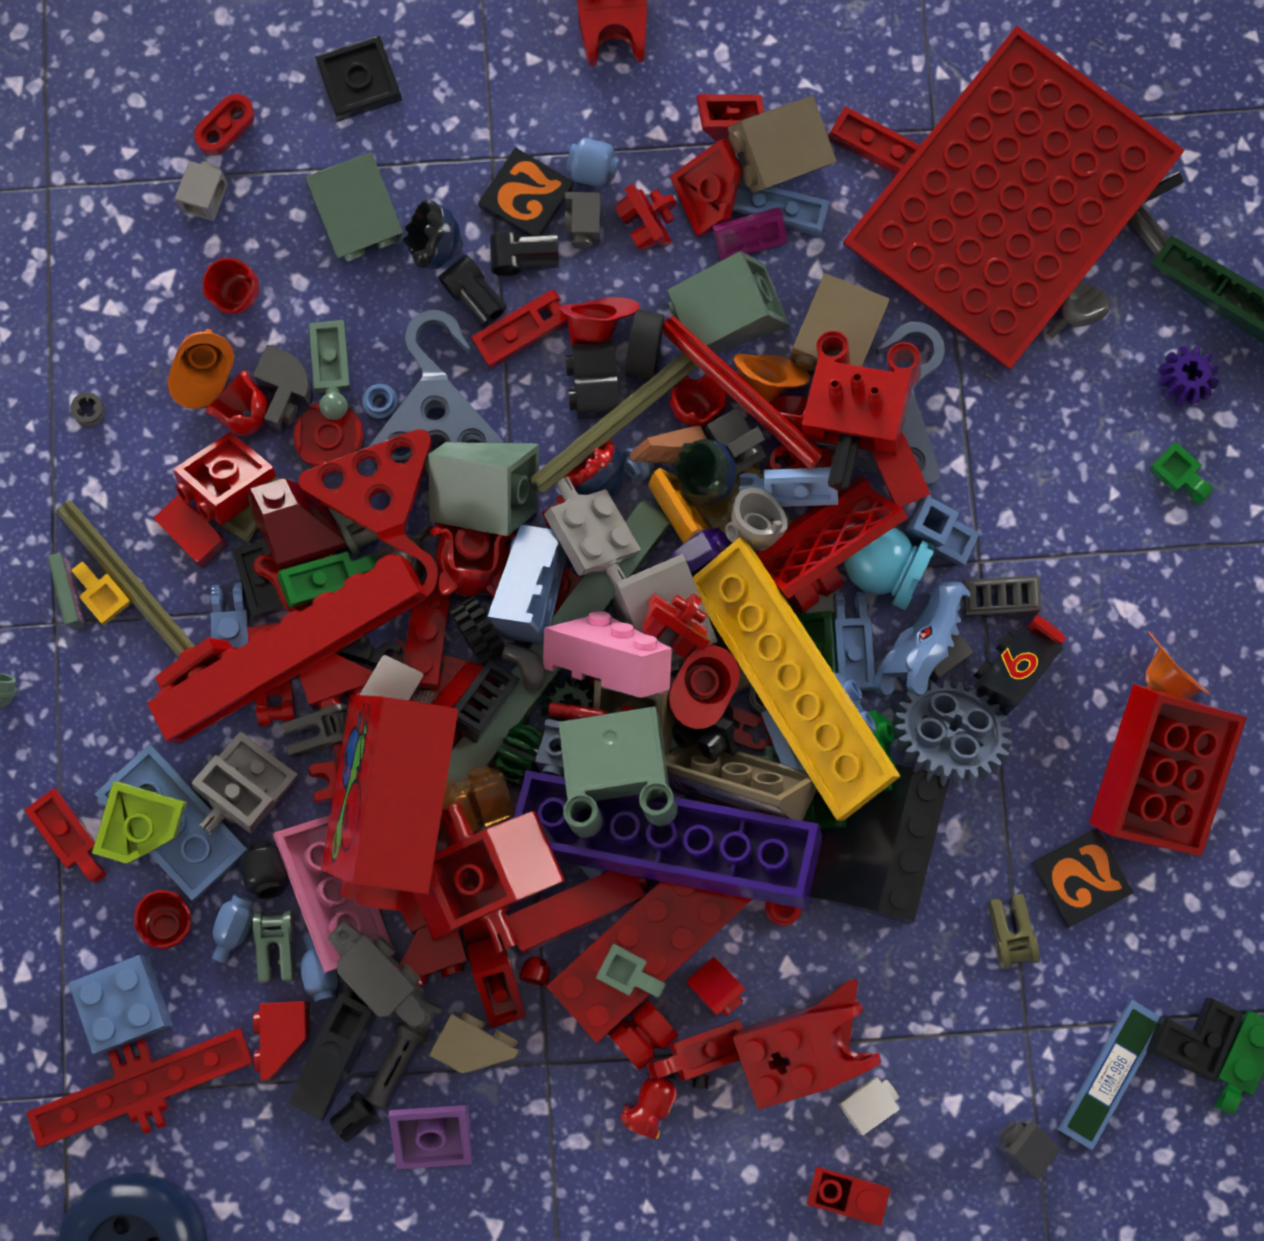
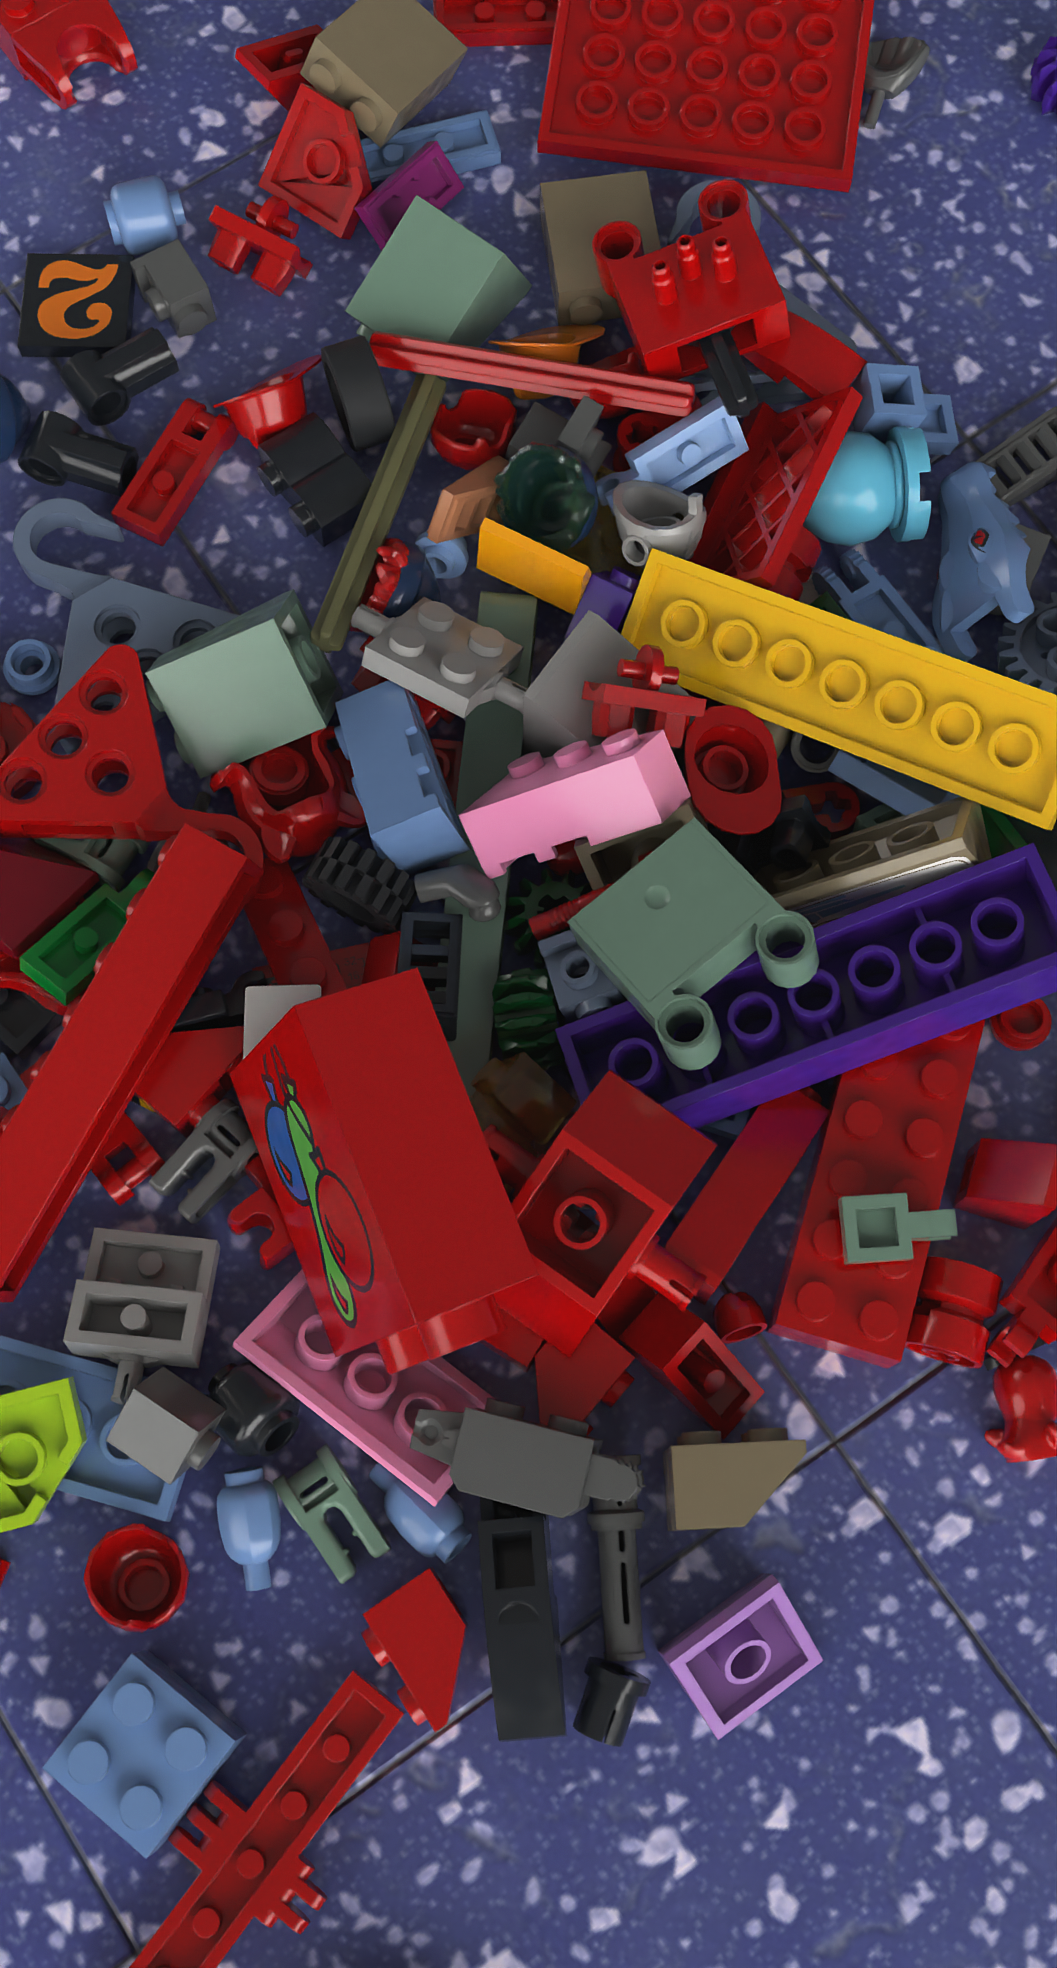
camera: 30 degrees left, 5 degrees down
(218, 855) = (167, 1426): none -> brick

